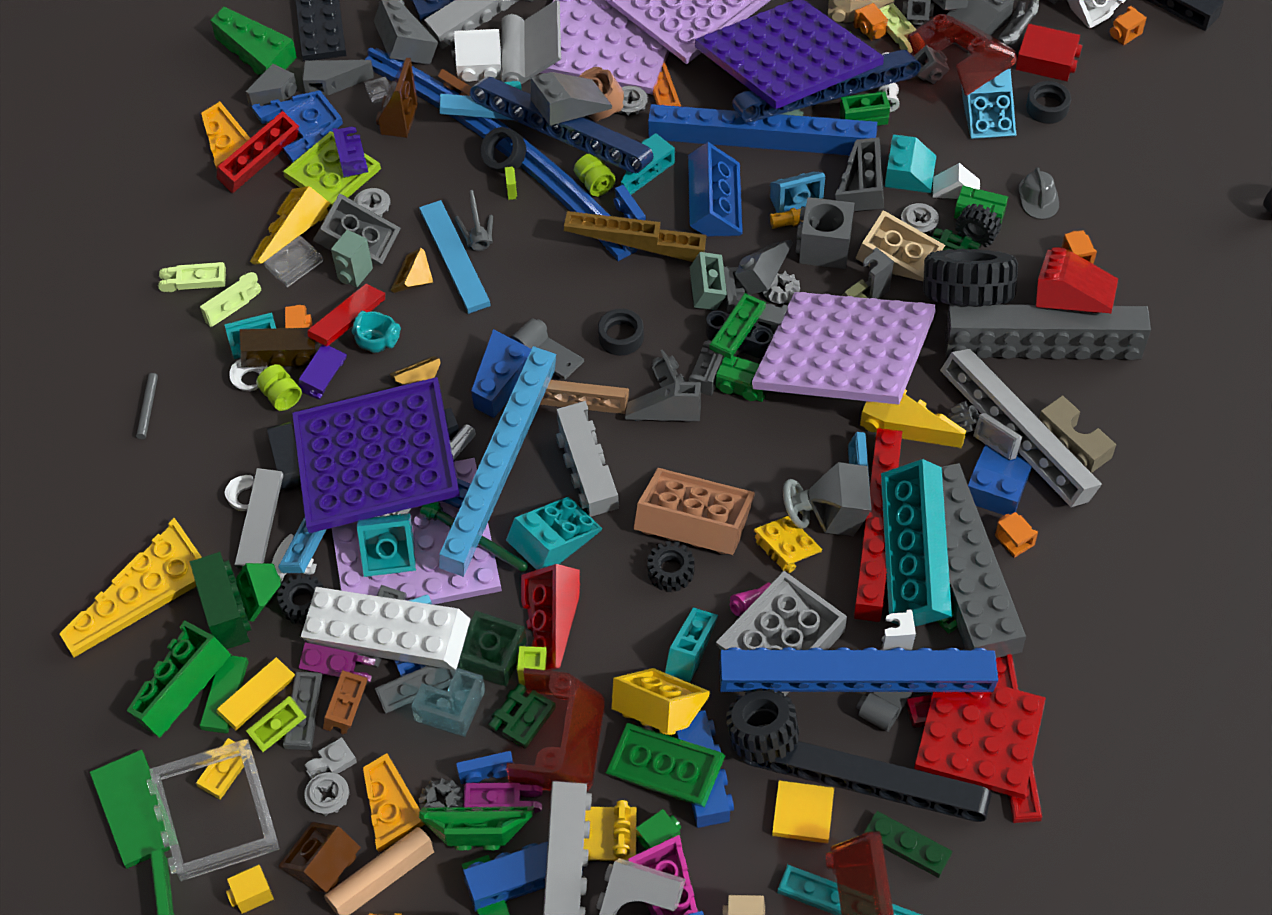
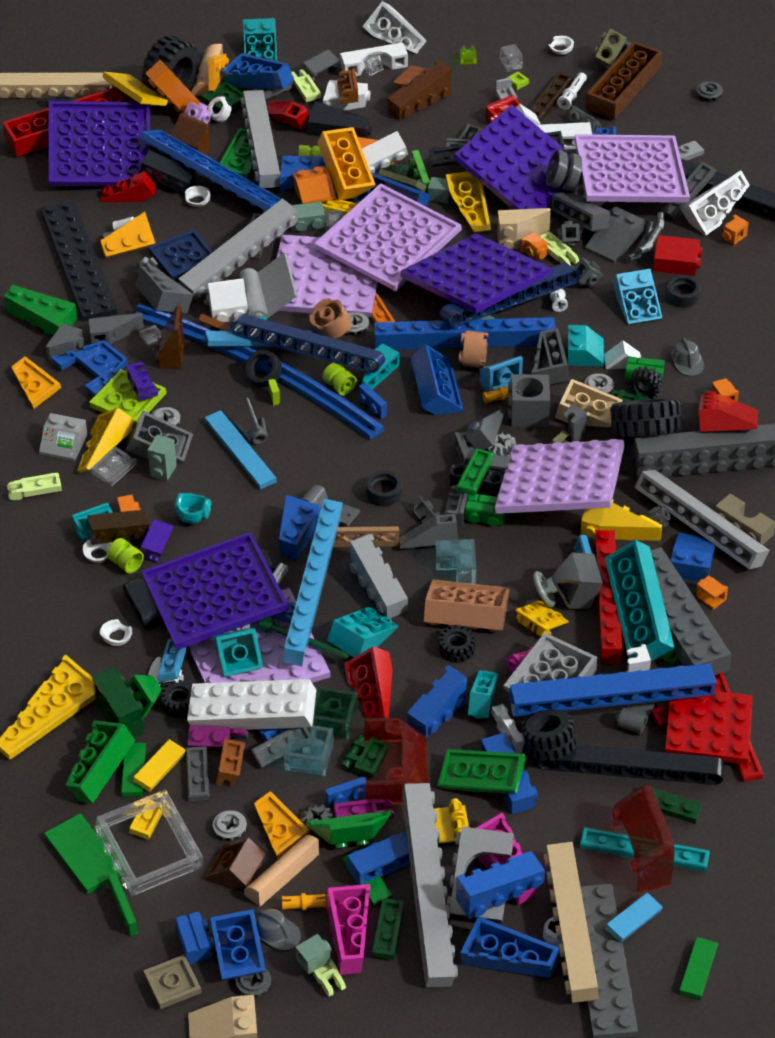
camera: 10 degrees left, 10 degrees down
(147, 406) = (21, 581): dark grey bar -> none
(231, 299) = (70, 498): yellowish green hinge -> none
(241, 214) = (63, 437): none -> light grey slope
(249, 889) = (187, 892): yellow brick -> none
(257, 152) = (66, 388): red brick -> none
(259, 517) = (132, 644): light grey tile -> none
(276, 723) = (181, 781): lime slope -> none
(333, 758) = (229, 800): light grey plate -> none
(344, 315) = (165, 498): red tile -> none
(413, 272) = (210, 464): slope -> none
(417, 372) = (232, 532): pearl gold slope -> none
(530, 658) = (364, 712): lime panel -> none
(566, 97) = (308, 322): dark grey slope -> none
(631, 653) = (440, 703): none -> blue wedge
(636, 234) = (384, 417): pearl gold slope -> none
(657, 830) = (483, 814): green brick -> none
(658, 699) = (466, 730): yellow slope -> none
(694, 439) = (457, 556): none -> clear light blue brick
(708, 281) = (445, 444): sand green brick -> none
(714, 704) = (508, 726): none -> white hinge
(769, 154) = (474, 349): none -> nougat brick
(803, 811) = (588, 793): yellow tile -> none
(866, 107) = (543, 307): green brick -> none
(988, 55) = (630, 260): clear red windscreen -> none
(997, 436) = (686, 527): light grey plate -> none

